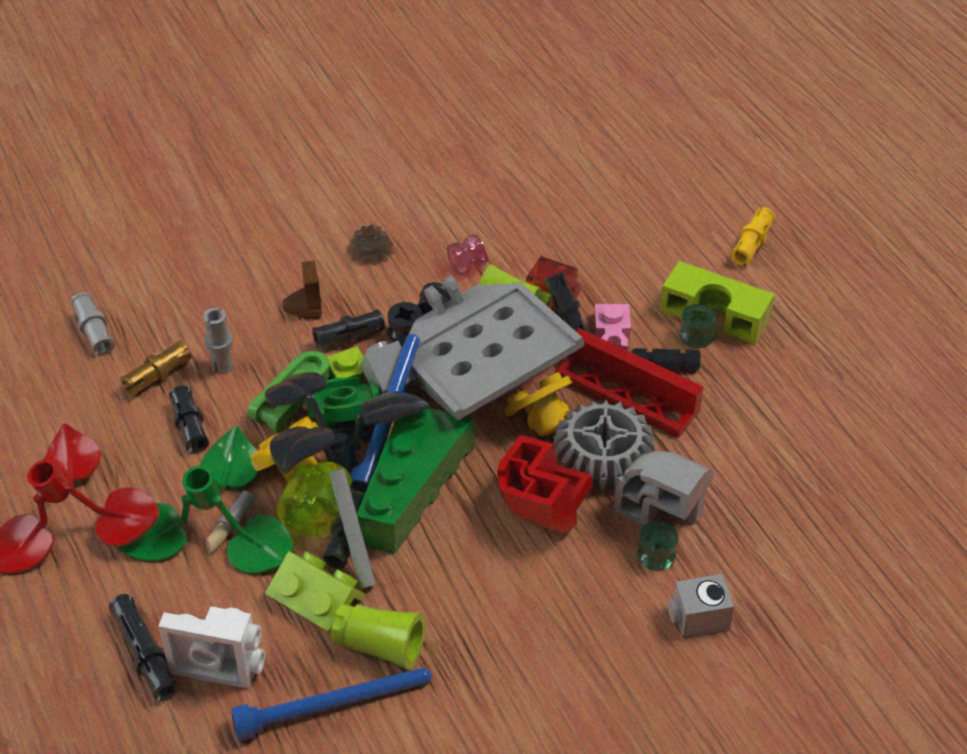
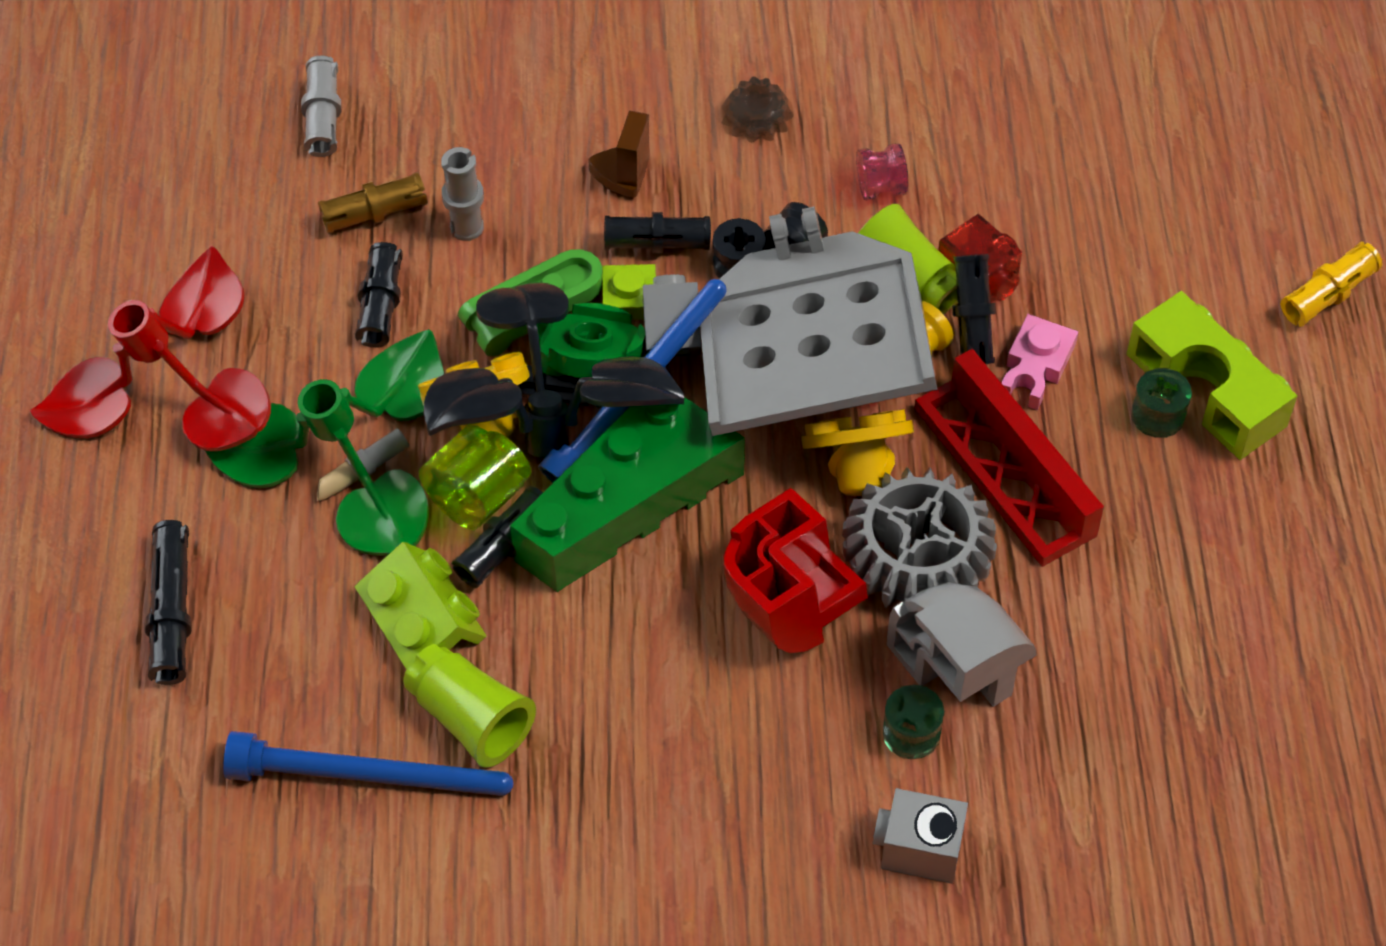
camera: 25 degrees right, 10 degrees up
(213, 649) = (244, 639): white plate -> none
(352, 528) = (498, 541): light grey bar -> none
(671, 358) = (1088, 438): black axle -> none

